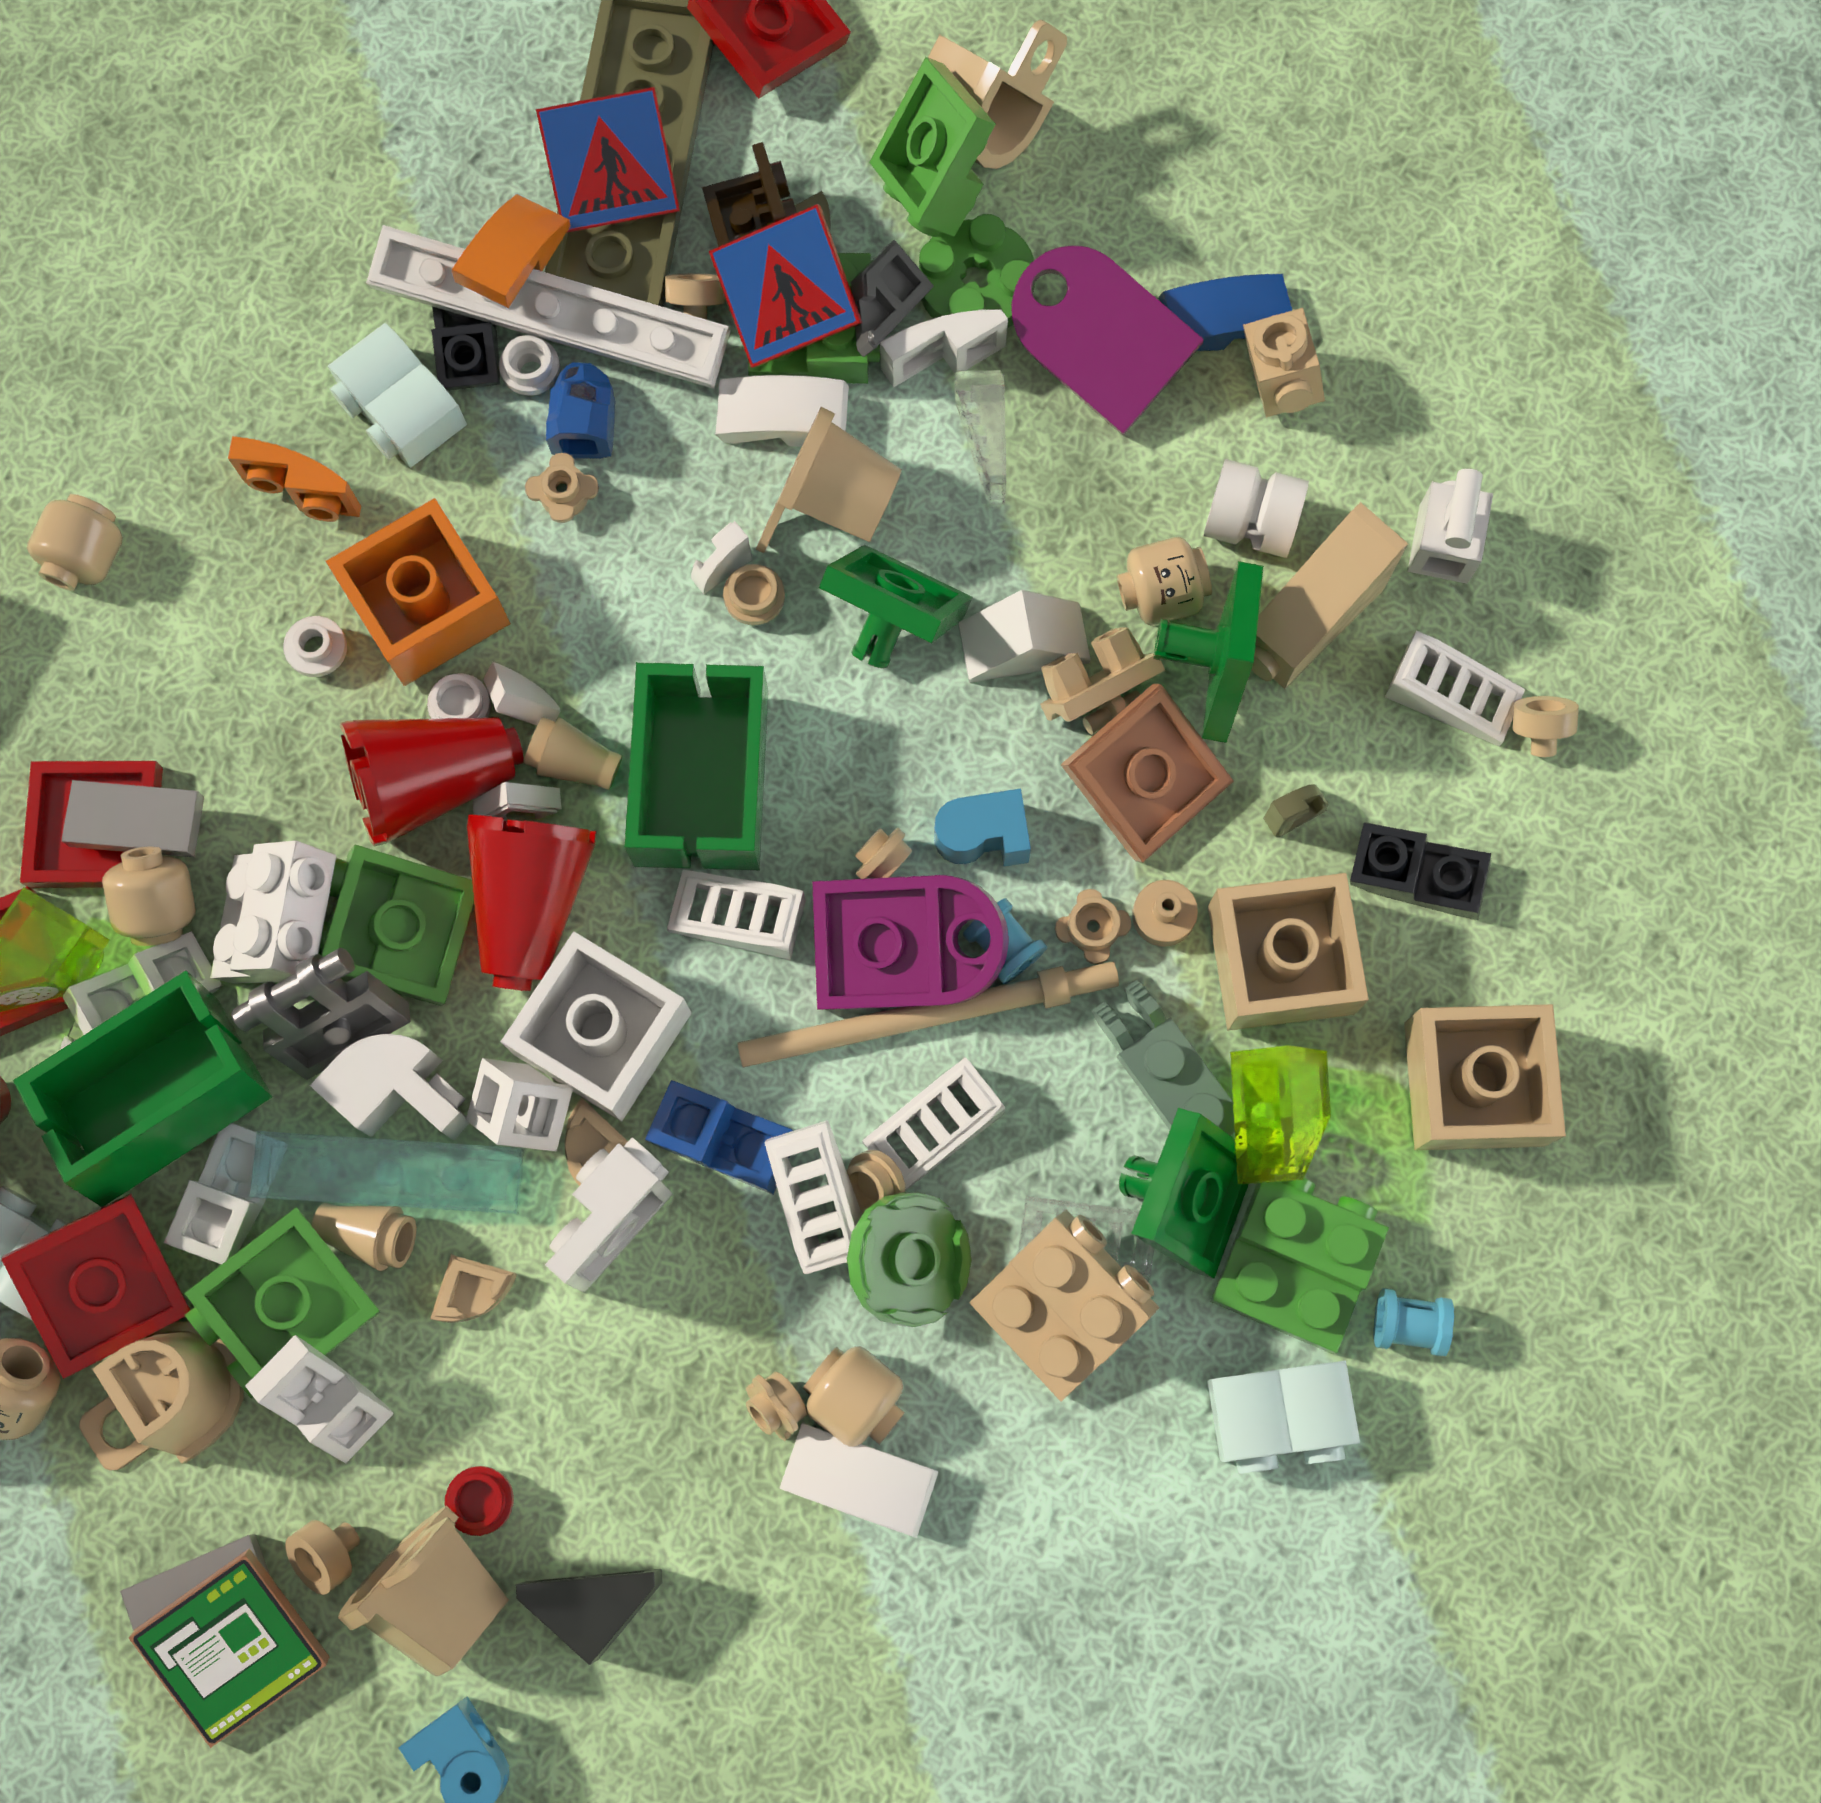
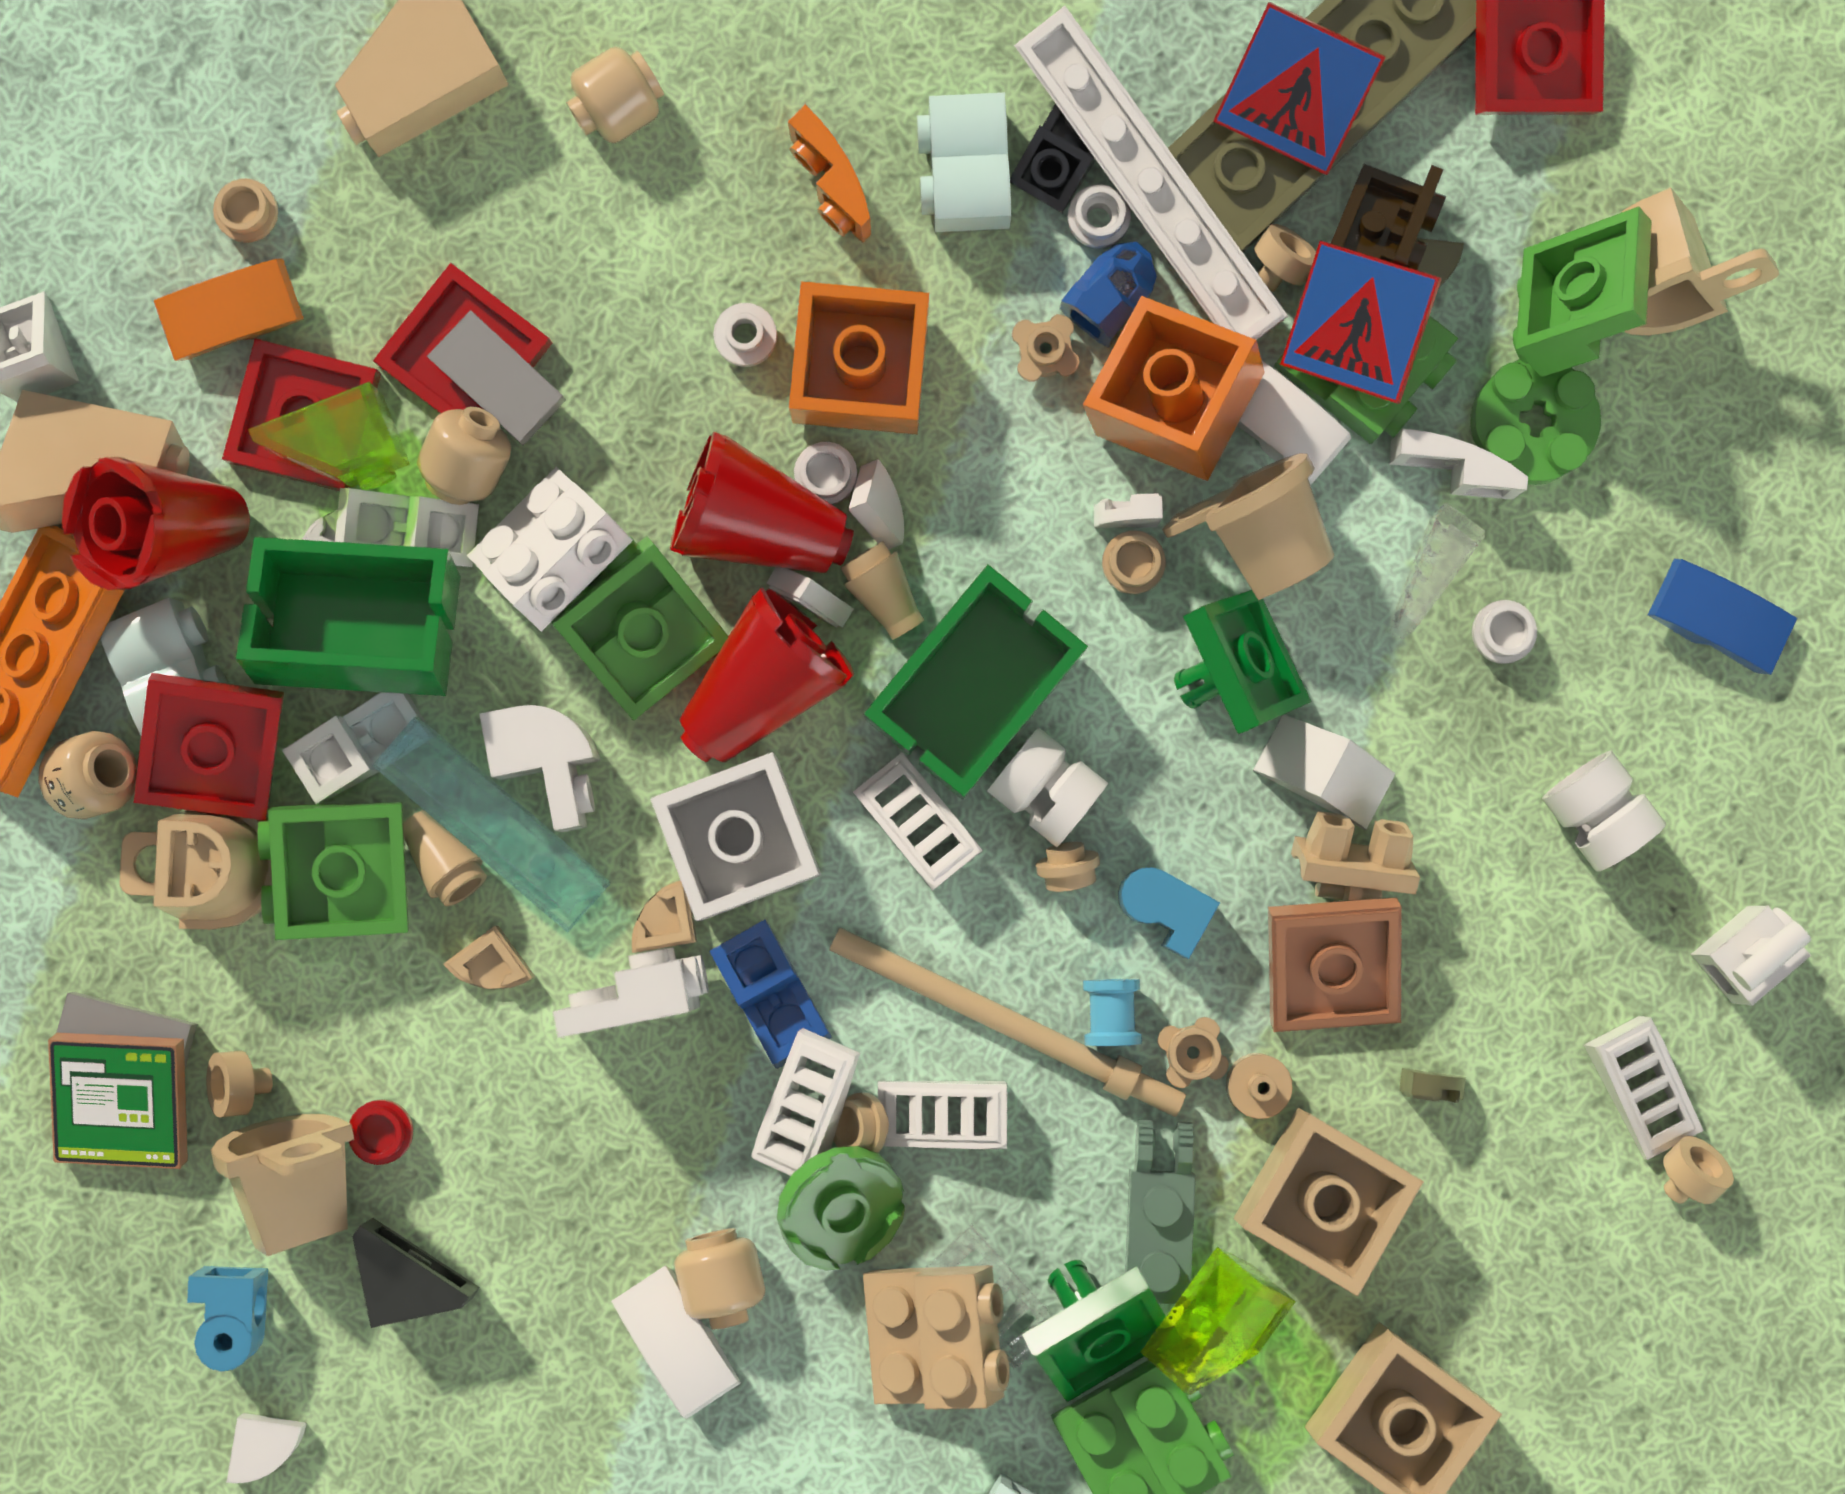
camera: 35 degrees right, 10 degrees up
(319, 1399) = (314, 966): white slope -> none
(337, 1018) = (529, 663): flat silver plate -> none
(508, 248) = (1155, 111): orange slope -> none
(518, 1105) = (628, 853): white brick -> none
(682, 437) = (1174, 387): none -> orange brick
(775, 1405) = (655, 1237): tan plate -> none
(794, 810) = (1047, 787): none -> white wheel
(886, 294) = (1441, 388): dark grey tile -> none
(899, 941) = (1026, 950): magenta tile -> none
(1076, 440) = (1504, 631): none -> white plate
(1105, 336) = (1597, 565): magenta tile -> none
(1165, 581) = (1478, 815): tan head -> none
(1224, 651) = (1476, 921): green tile -> none
(1284, 362) = (1731, 704): tan brick -> none
(1325, 595) = (1594, 933): tan slope -> none
(1419, 872) = (1493, 1212): black slope -> none

